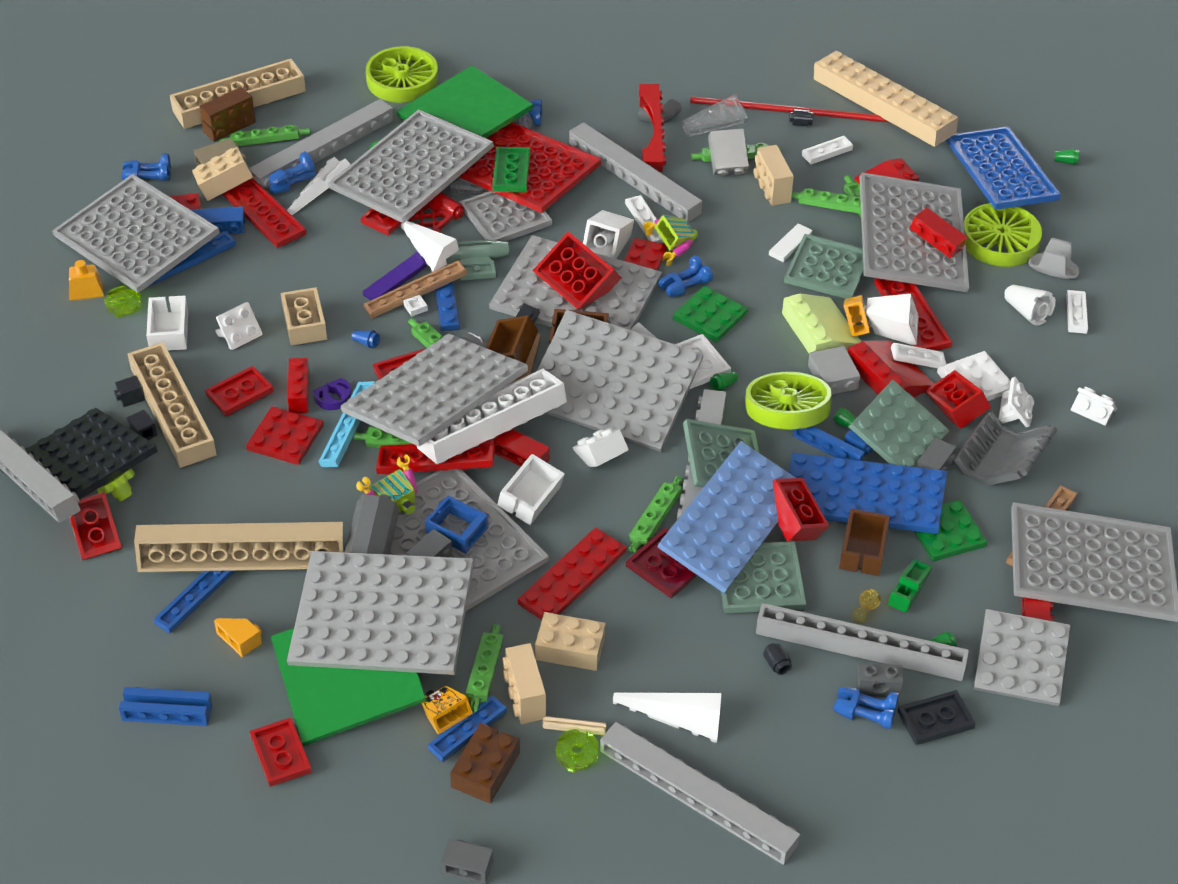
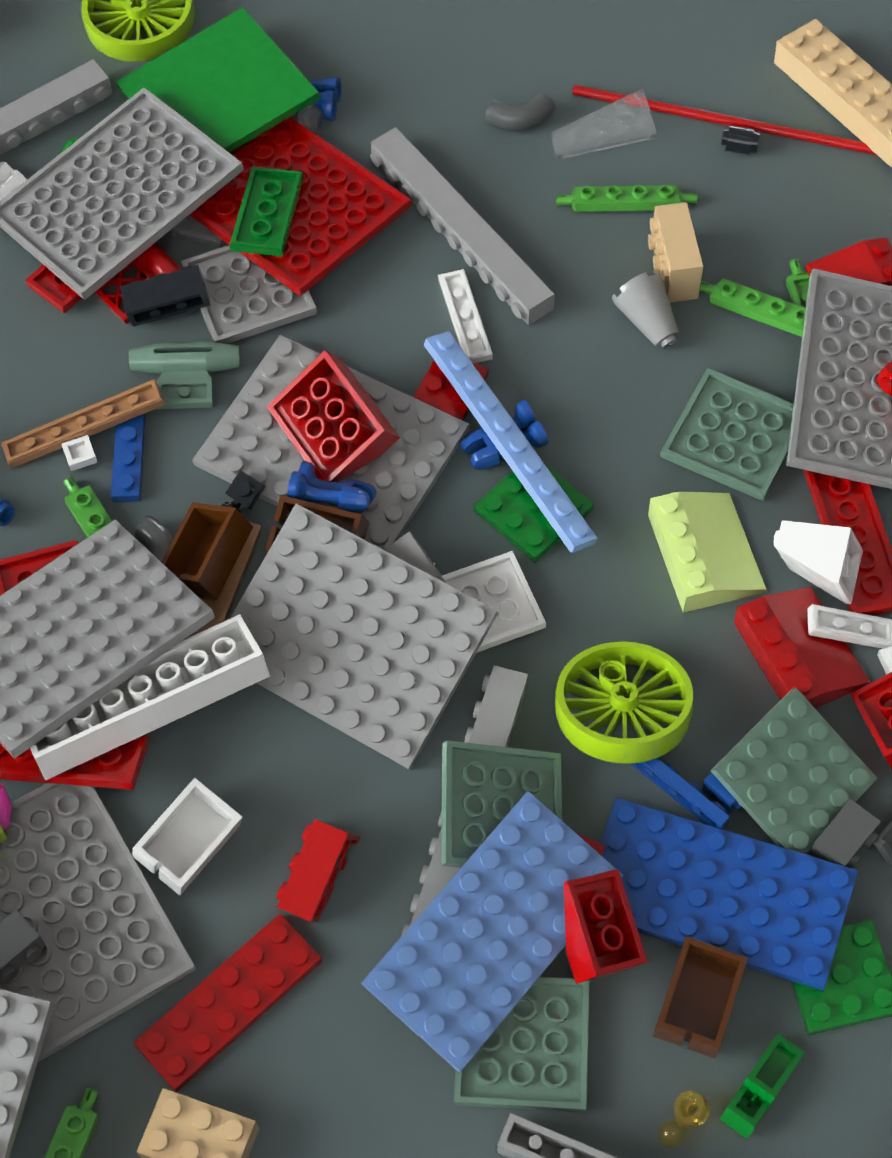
camera: 10 degrees right, 15 degrees up
(396, 277) = (76, 383): dark purple tile -> none
(431, 244) = (121, 346): white wedge -> none
(456, 217) = (165, 295): none -> black brick
(476, 518) = (79, 916): blue window -> none
(518, 447) = (192, 752): red brick -> none
(596, 306) = (349, 495): none -> blue piece
(601, 447) = (314, 758): white slope -> none
(607, 233) = (394, 342): white slope -> none
(614, 499) = (315, 870): none -> red wedge
(650, 100) = (503, 94): red arch -> none
(655, 513) = (379, 895): bright green plate -> none
(660, 568) = (358, 1010): dark red plate -> none
(675, 234) = (501, 353): torso -> none
(690, 277) = (510, 442): none -> light blue plate
(722, 380) = (530, 643): green cone -> none
(728, 152) = (611, 202): light grey brick -> none
(761, 204) = (649, 308): none -> light grey cone
(789, 243) = (682, 380): white tile -> none
(827, 150) = (771, 205): white plate -> none
(835, 369) = (710, 642): light grey brick -> none
(844, 417) = (714, 738): green cone -> none
(855, 313) = (756, 533): light orange torso -> none

